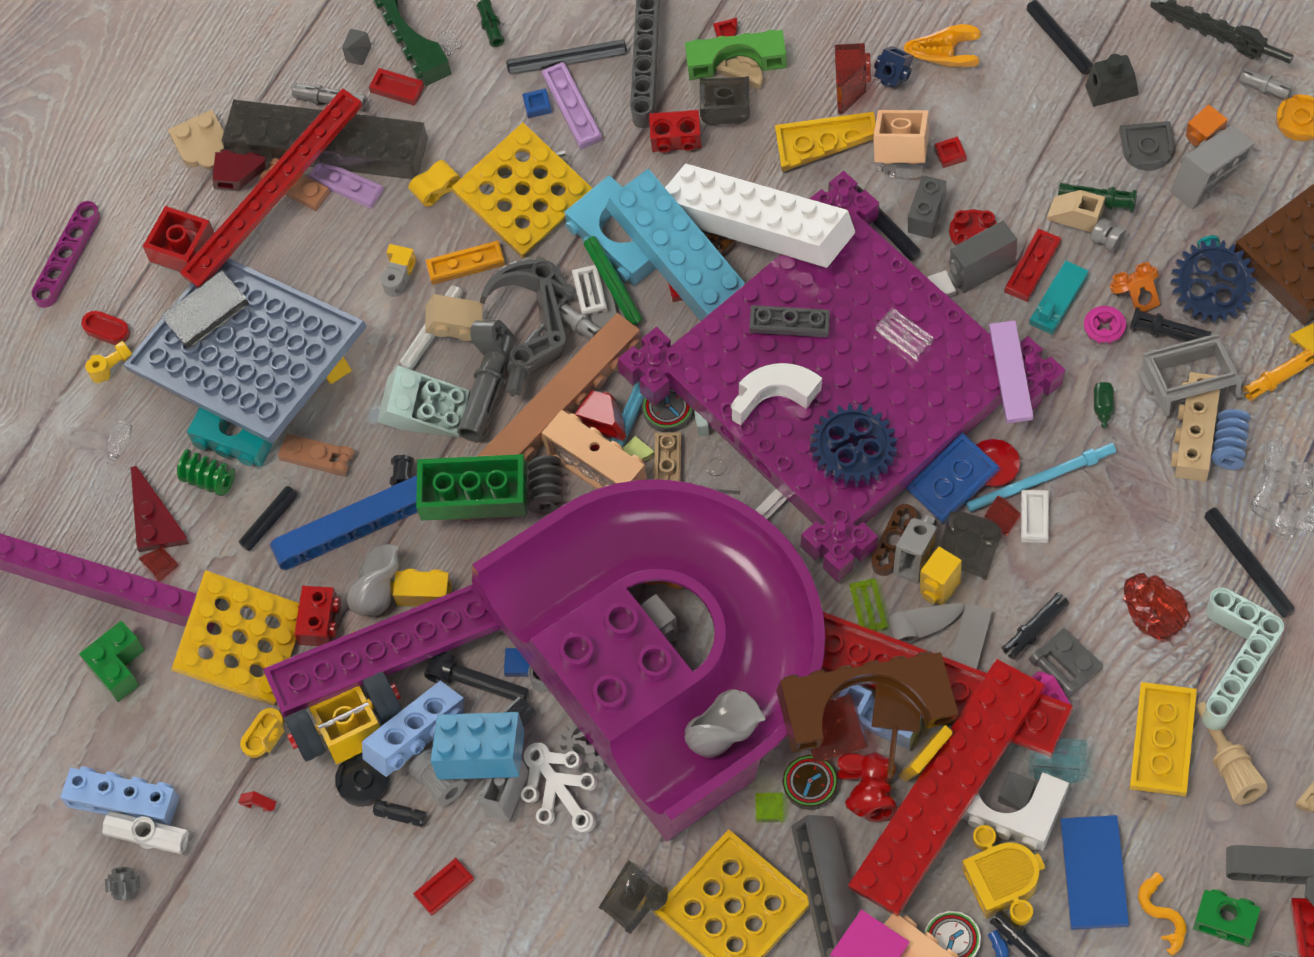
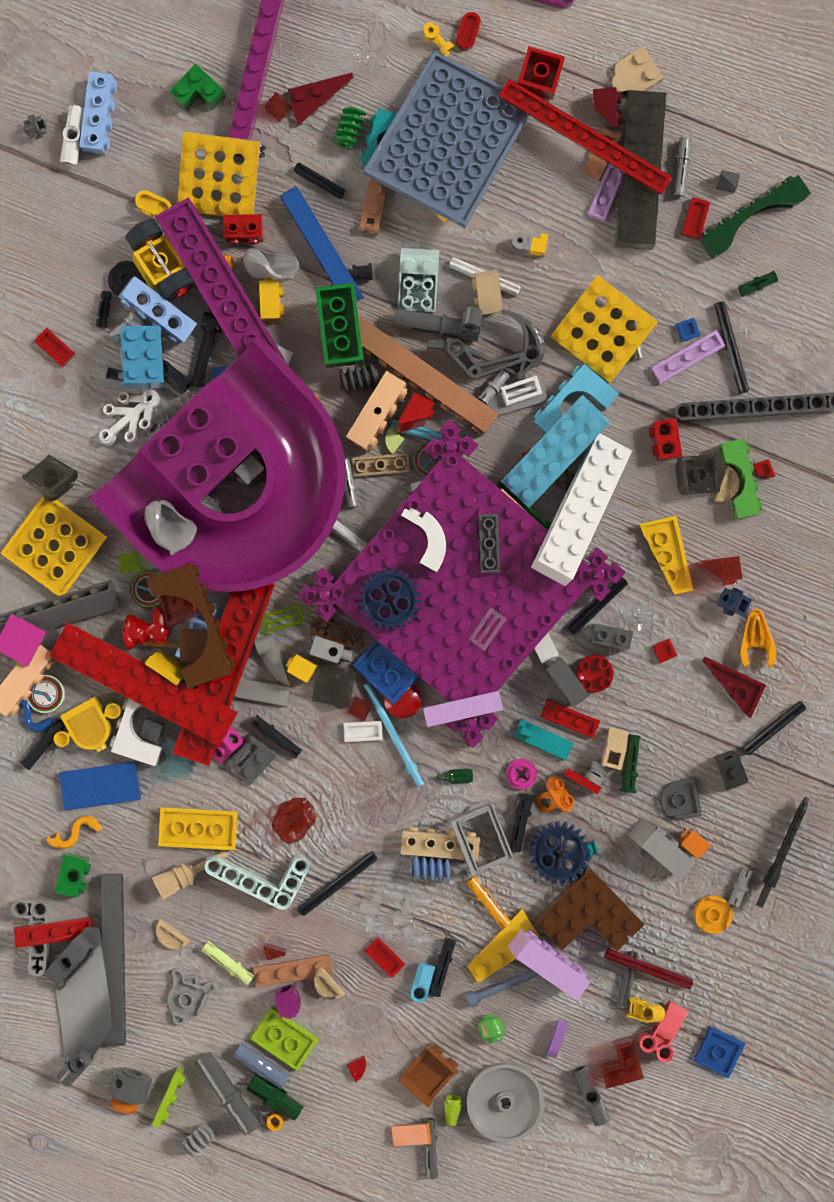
camera: 75 degrees right, 25 degrees up
(204, 309) = (479, 103): clear smoke tile -> none
(257, 799) = (102, 209): red tile -> none
(433, 183) = (608, 260): yellow axle -> none
(465, 262) = (542, 294): light orange tile -> none
(612, 281) = (529, 407): green axle -> none
(901, 136) = (668, 613): light nougat brick -> none
(1003, 69) = (741, 688): none -> dark red wing
(1117, 252) = (582, 780): none -> red tile

